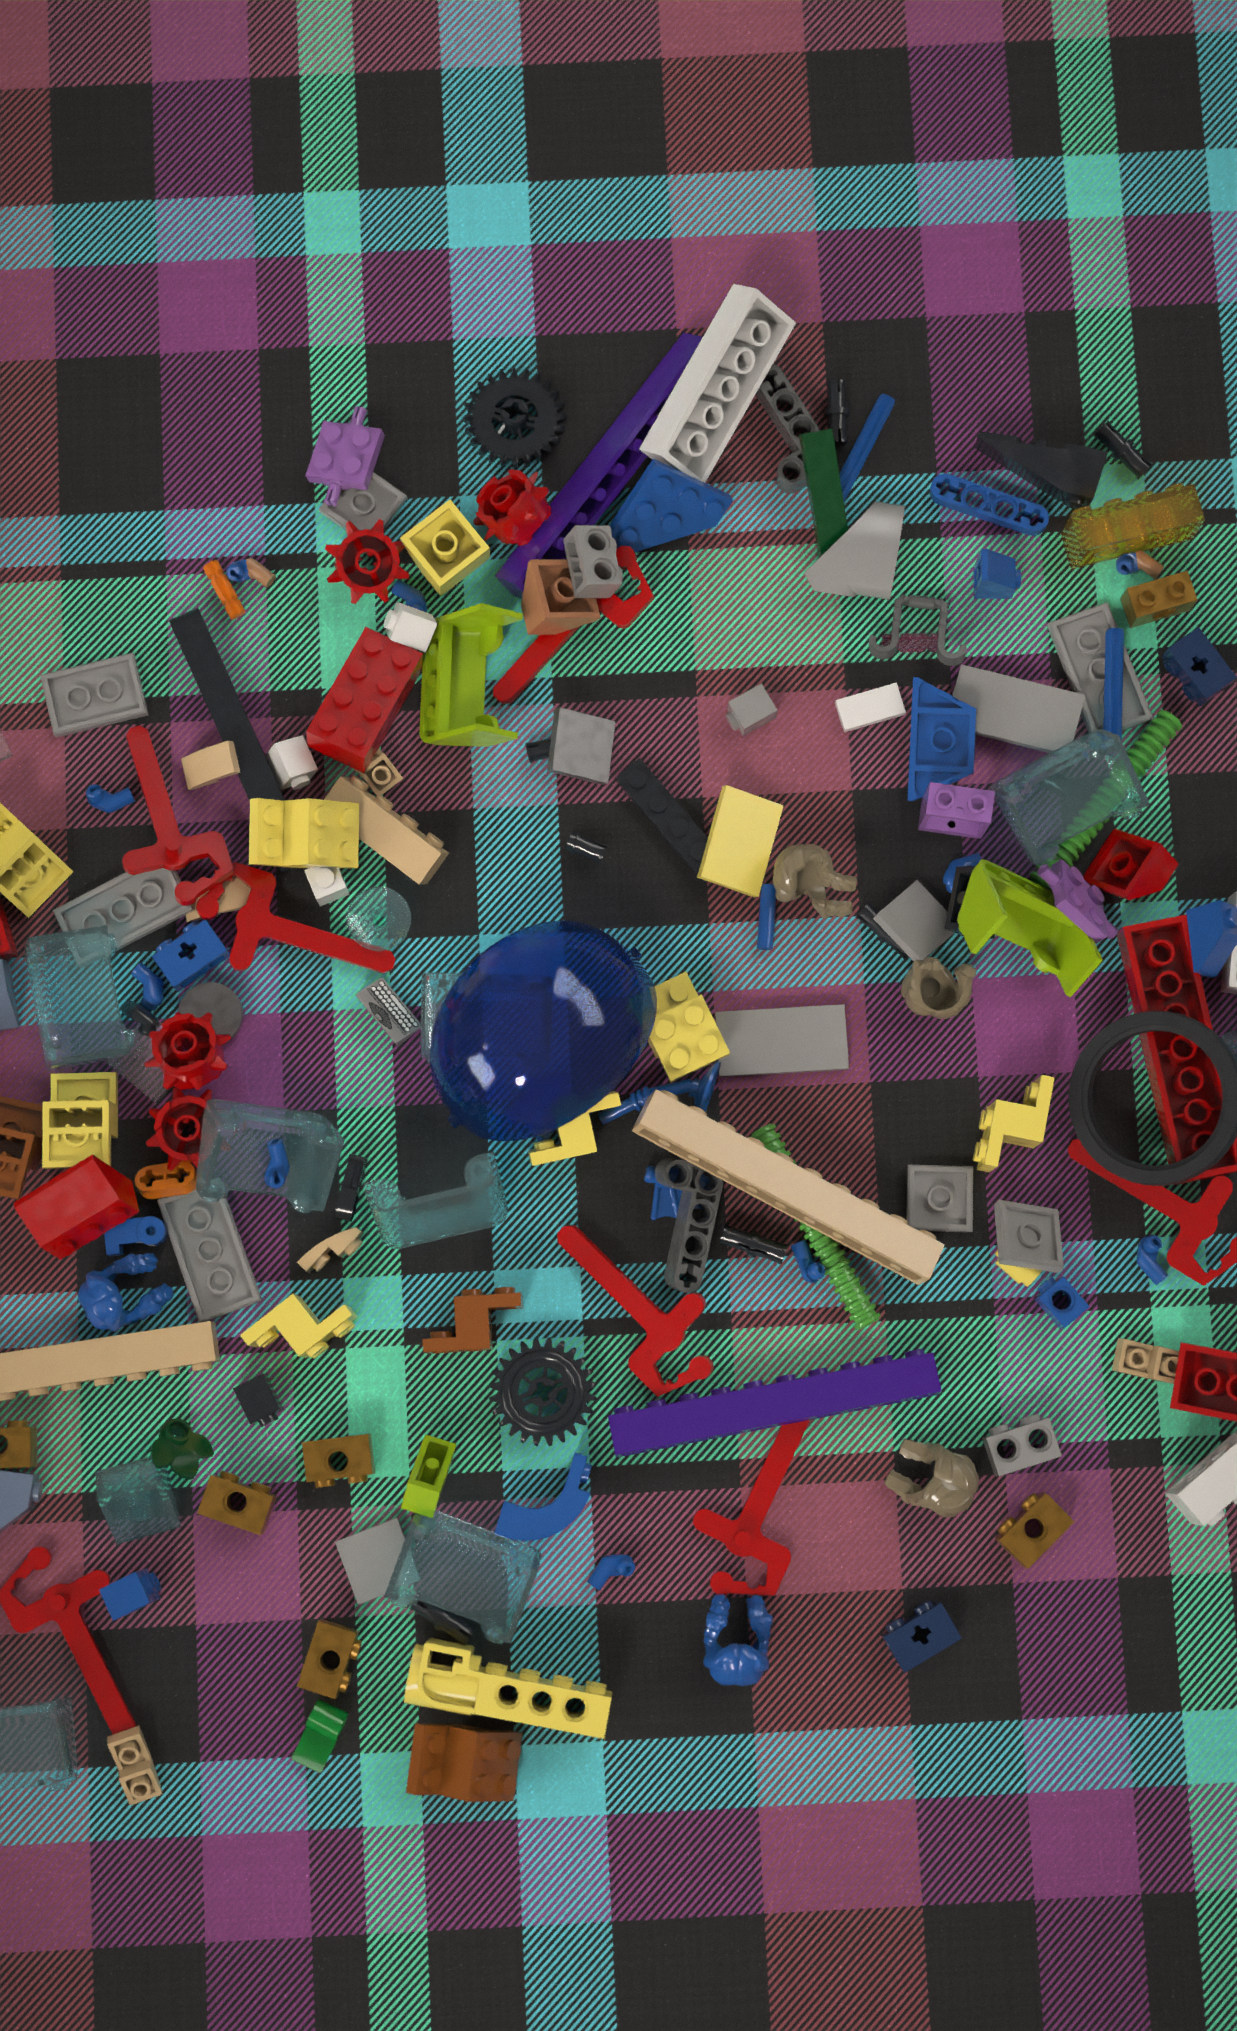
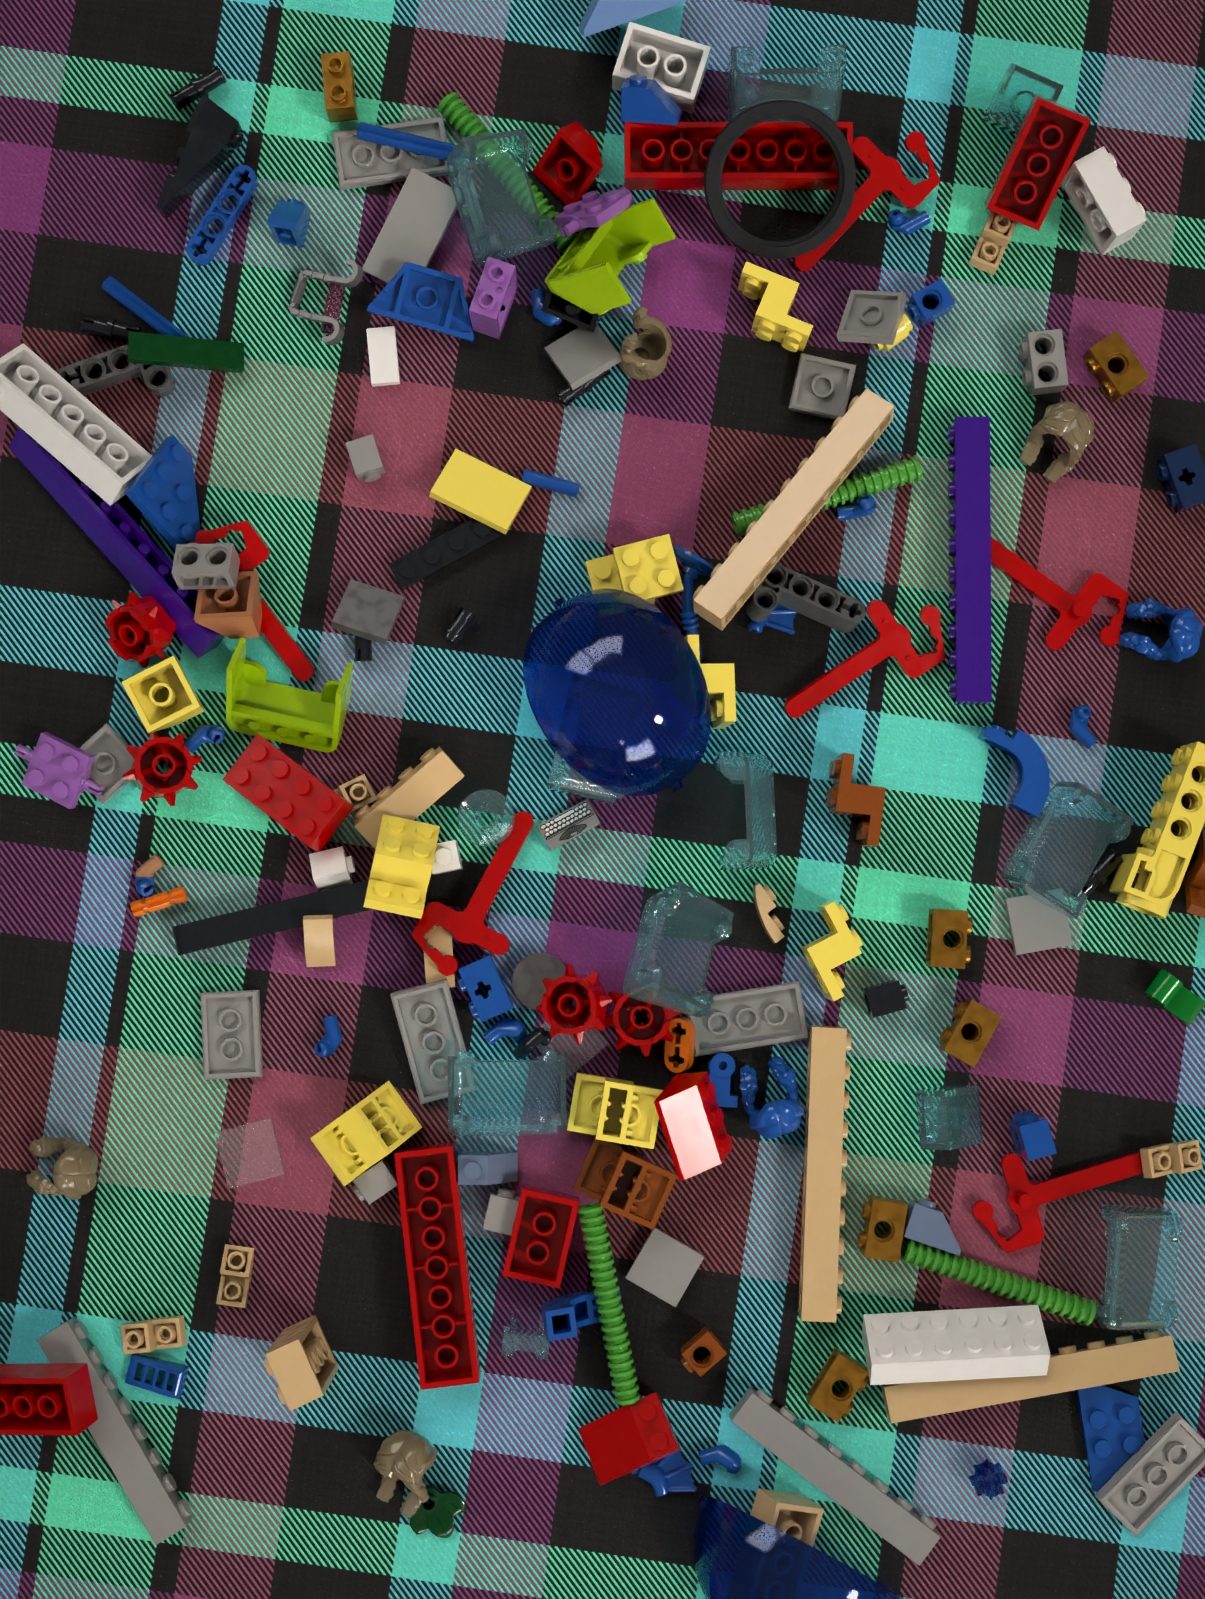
camera: 85 degrees left, 5 degrees up
(172, 849) = (390, 986): red piece -> none
(180, 1452) = (917, 1071): dark green plate -> none
(278, 1165) = (688, 944): blue arm -> none
(317, 1676) = (1096, 975): pearl gold brick -> none
(351, 1187) = (717, 886): black piece -> none
(410, 626) = (230, 740): white brick -> none
(428, 1476) = (980, 863): lime brick -> none
(512, 1404) = (931, 780): black gear -> none
(513, 389) = (67, 589): black gear -> none
(753, 1244) = (831, 551): black pin -> none
(783, 1040) = (661, 488): light grey tile -> none
(808, 871) = (519, 445): dark tan hair -> none
(863, 556) = (249, 331): light grey panel -> none
(1132, 525) = (270, 92): clear yellow brick -> none
(1137, 561) = (300, 98): arm -> none
(1198, 651) = (412, 54): dark blue brick -> none

